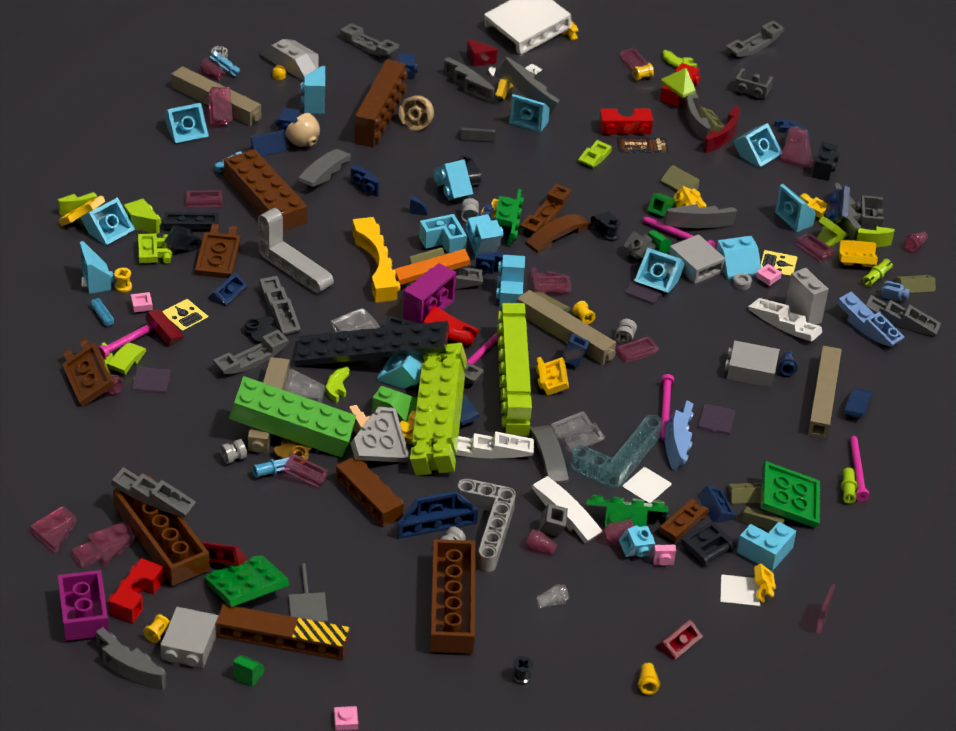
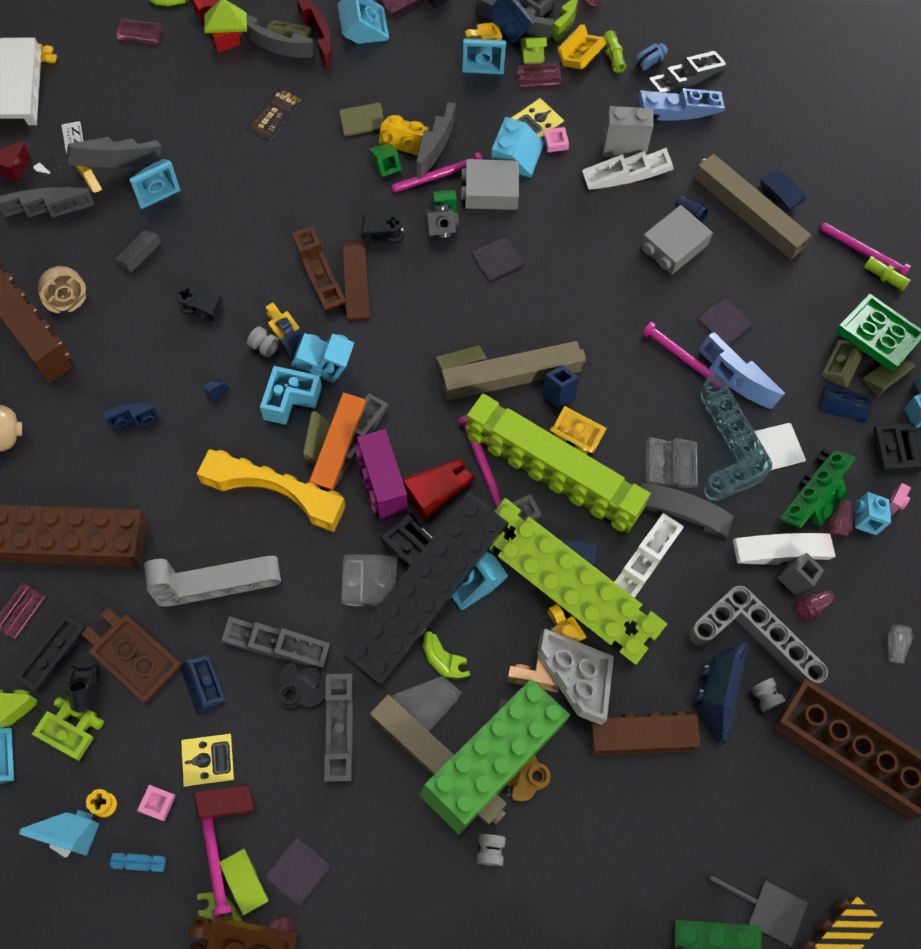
camera: 55 degrees left, 25 degrees up
(270, 467) = (540, 819): dark azure axle -> none
(302, 470) = (555, 797): clear pink tile -> none
(323, 167) = (75, 444): dark grey slope -> none
(391, 398) = (520, 616): bright green slope -> none
(454, 178) = (206, 323): medium azure brick -> none
(489, 262) = (362, 378): dark blue slope -> none
(508, 212) = (300, 309): green bracket -> none
(511, 279) = (413, 379): medium azure brick -> none
(550, 282) = (429, 339): clear pink wing -> none
(582, 311) = (501, 339): yellow bush -> none
(596, 154) = (259, 164): lime slope -> none
(613, 123) = (227, 117): red arch -> none
(625, 331) = (556, 319): light grey wheel -> none
(637, 349) = (583, 324): clear pink tile -> none
(642, 72) = (167, 37): yellow bush -> none
(659, 270) = (490, 229): medium azure slope -> none
(683, 520) = (856, 445): reddish brown plate -> none
(742, 281) = (545, 167): light grey tile -> none
(917, 283) = (645, 31): olive slope -> none

